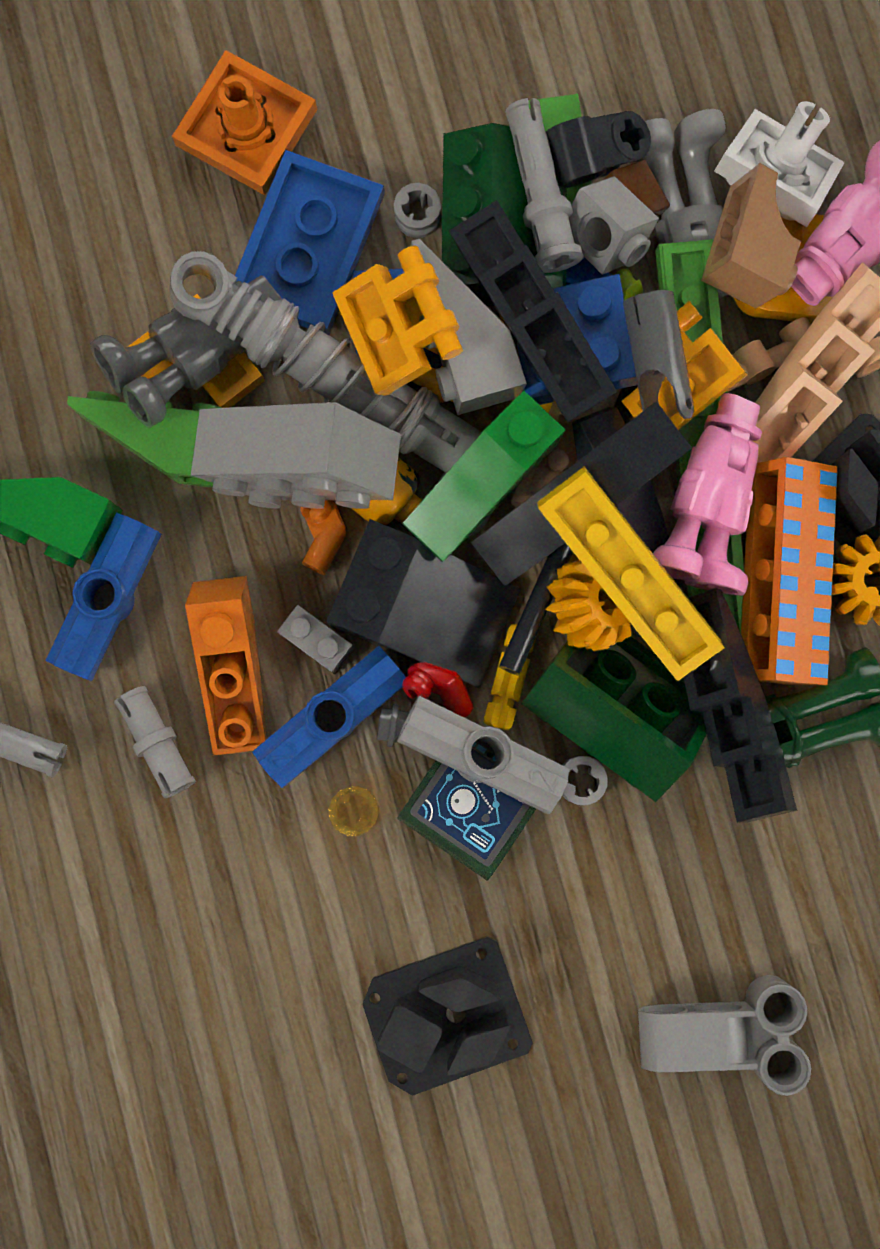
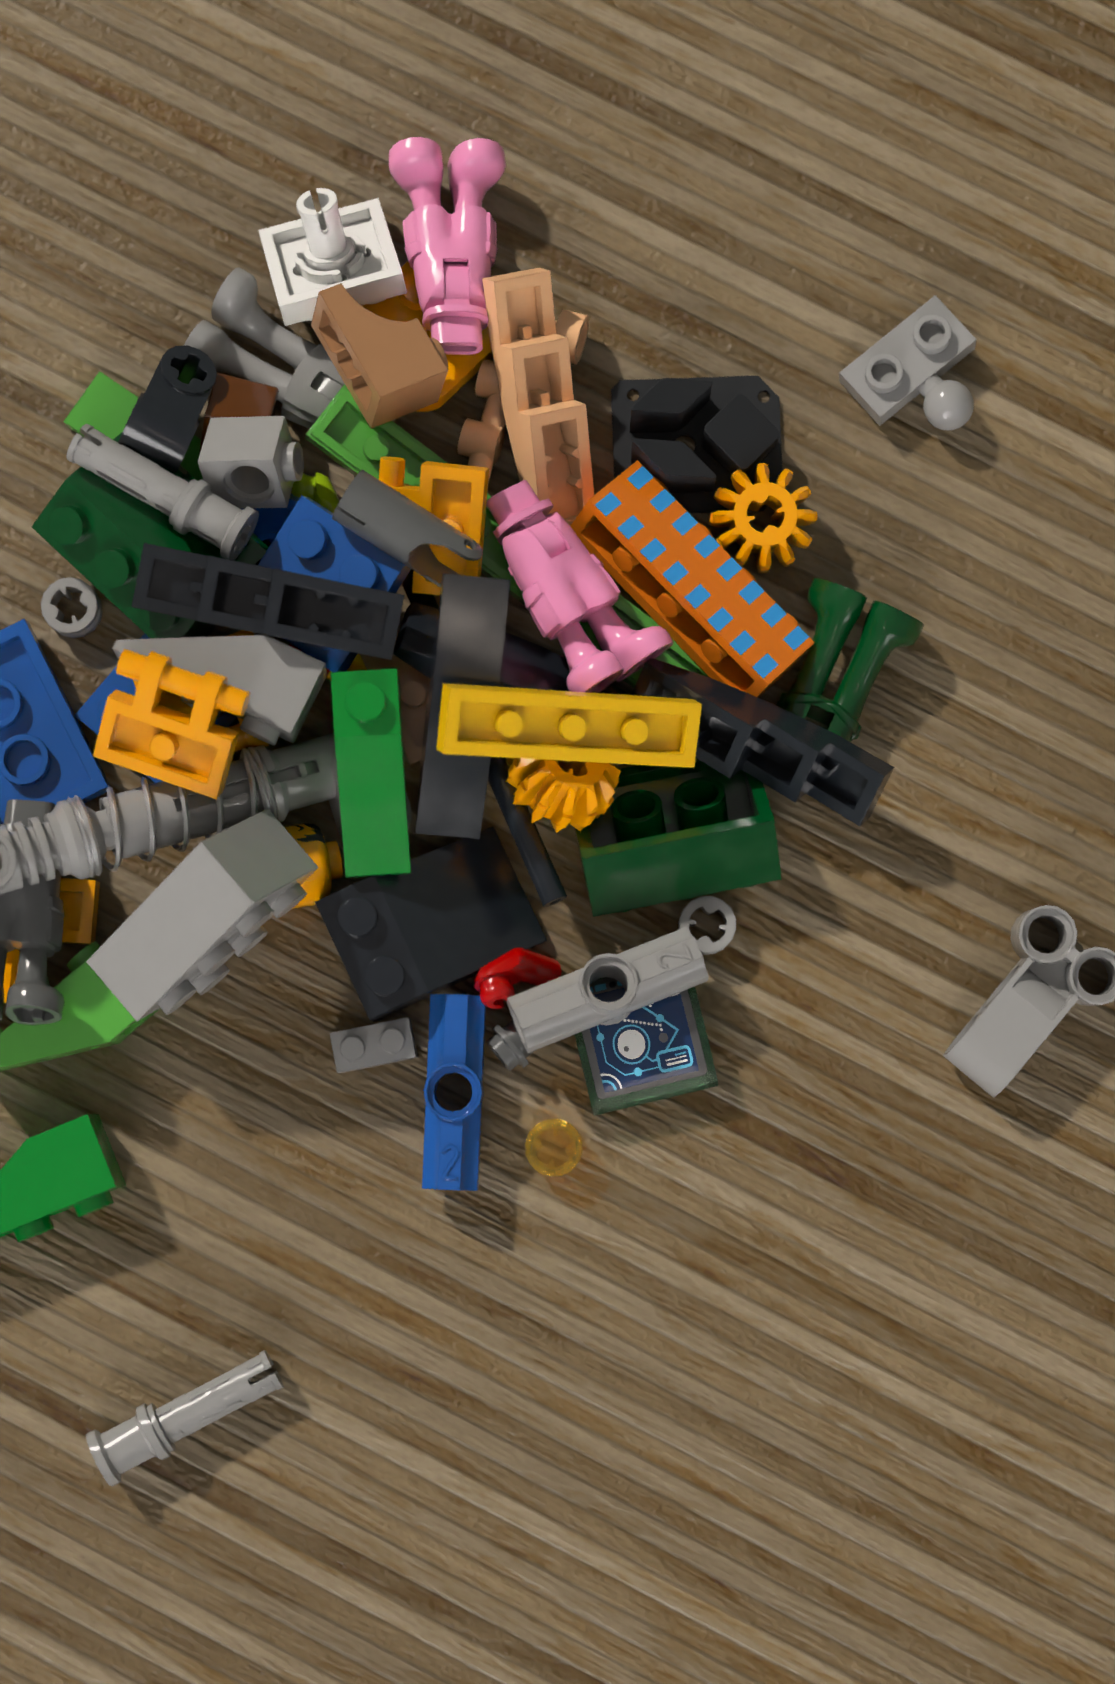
camera: 45 degrees left, 0 degrees up
(88, 630) = (146, 1157): blue piece -> none
(154, 741) = (334, 1267): light grey pin -> none
(227, 663) = (325, 1141): orange slope -> none
(328, 536) = (290, 950): orange arm -> none
(413, 1022) = (794, 1266): black piece -> none
(506, 691) = (570, 920): yellow axle -> none

